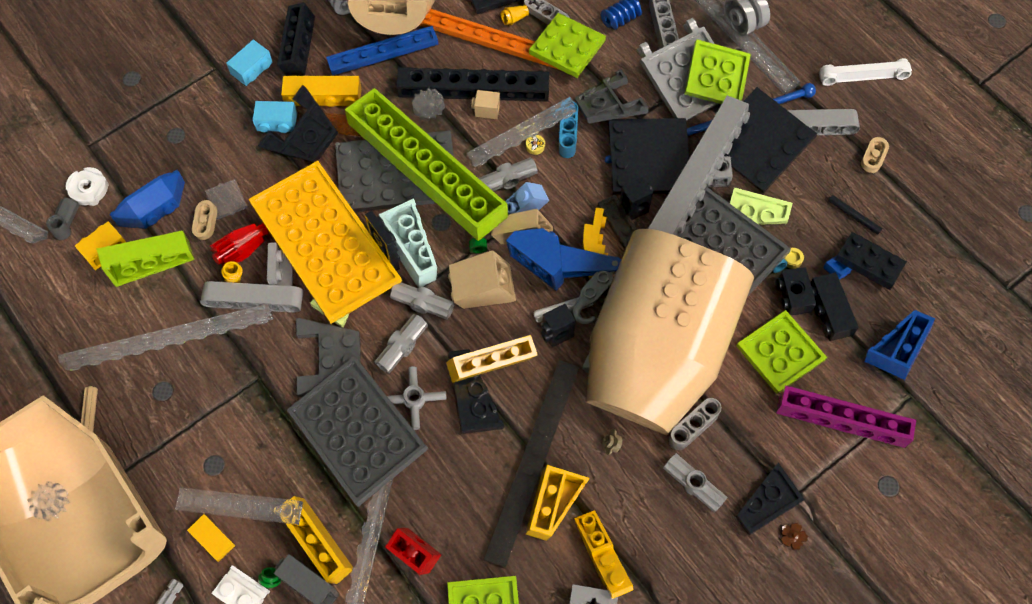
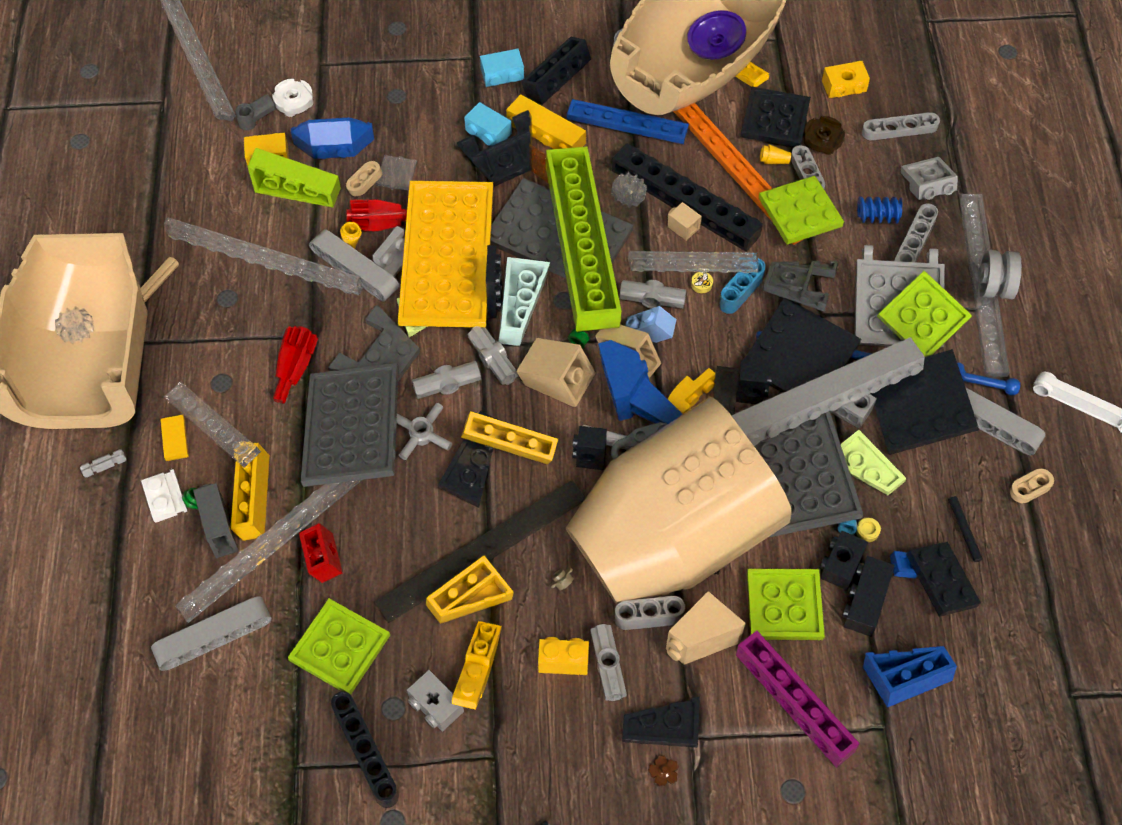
camera: 35 degrees right, 5 degrees down
(263, 406) = (293, 359): none -> red piece
(660, 501) = (563, 656): none -> yellow brick
(745, 409) = (704, 631): none -> tan slope

